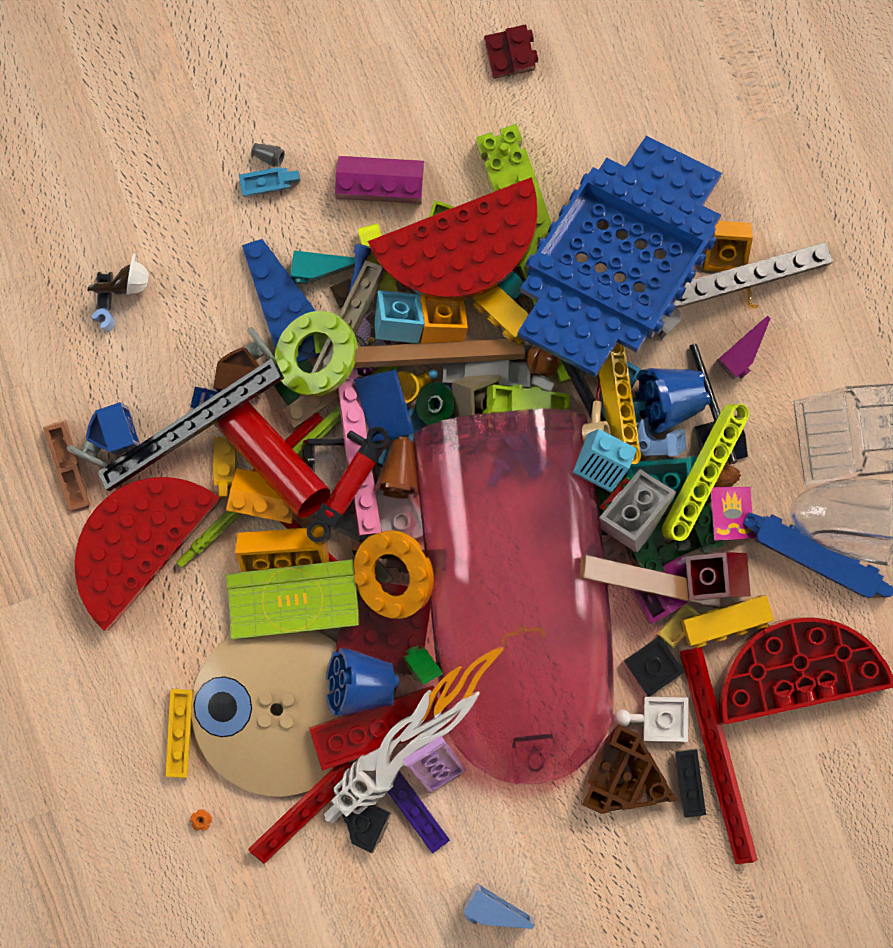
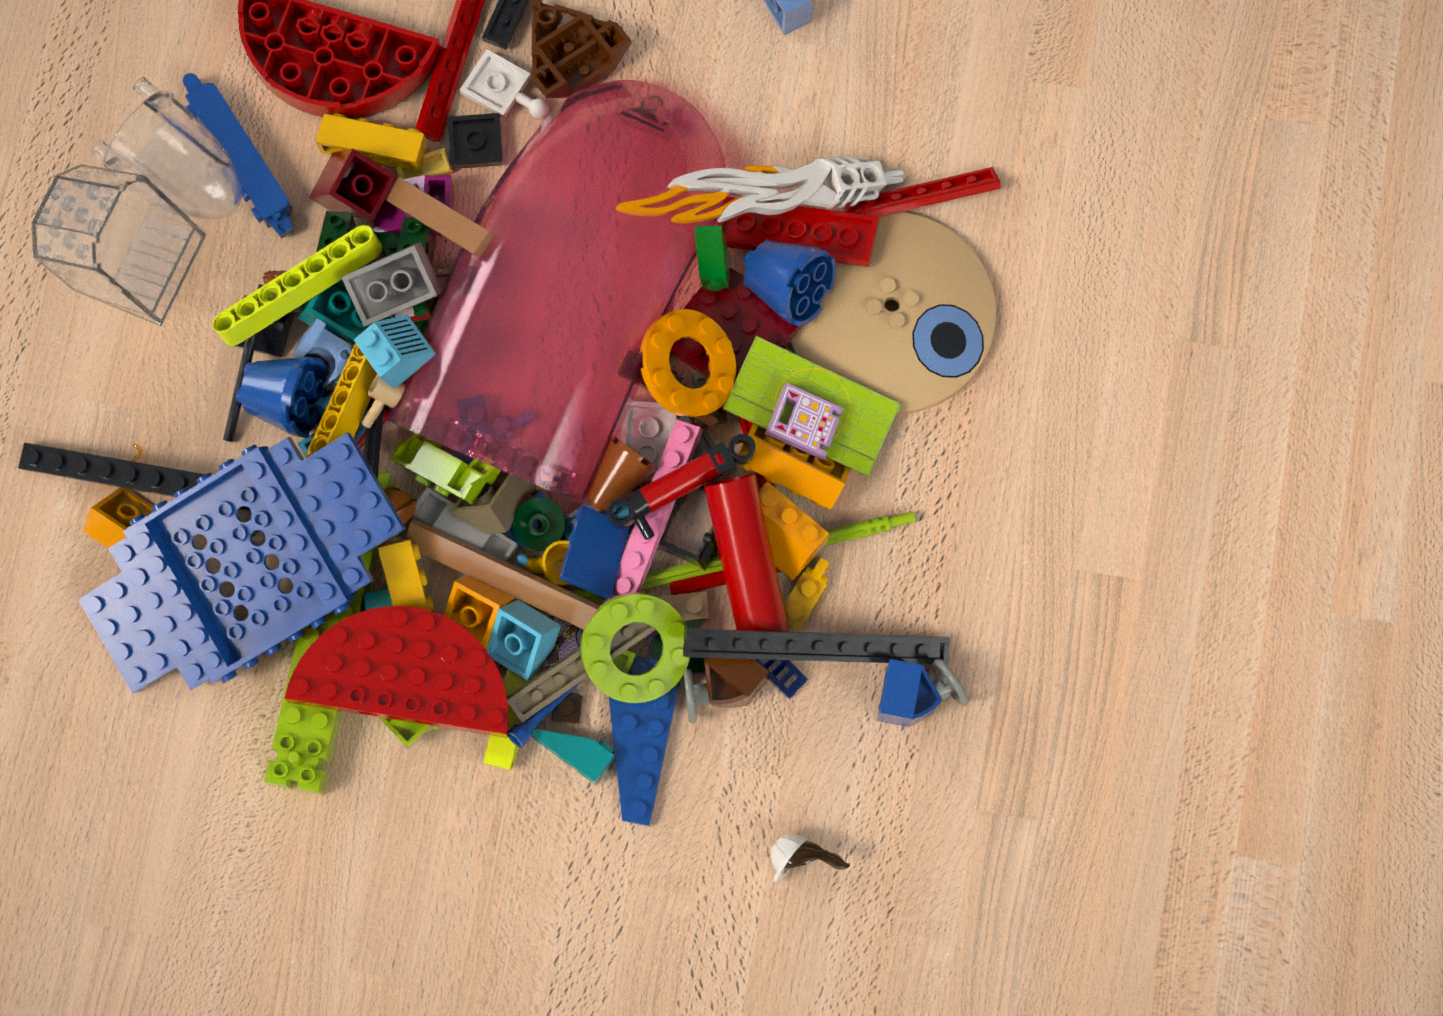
camera: 150 degrees left, 10 degrees down
(66, 465) = (979, 689): nougat slope -> none
(104, 304) = (839, 846): piece -> none
(133, 540) = (947, 567): red brick -> none
(179, 733) = (1009, 342): yellow plate -> none
(207, 819) = (1034, 251): orange plate -> none
(267, 181) = (579, 882): dark azure hinge -> none
(269, 154) = (559, 913): dark grey cone -> none
(285, 585) = (809, 424): none -> lavender container
(367, 827) = (865, 141): black plate -> none
(379, 179) = (452, 812): magenta slope -> none
(417, 814) = (804, 124): dark purple tile -> none
(434, 764) = (757, 155): lavender tile -> none
(511, 51) = (220, 874): dark red plate -> none
(519, 630) = (583, 216): piece -> none
(541, 381) = (412, 486): white plate -> none
(729, 511) = (299, 242): dark pink sticker -> none
(743, 353) = (179, 401): magenta slope -> none

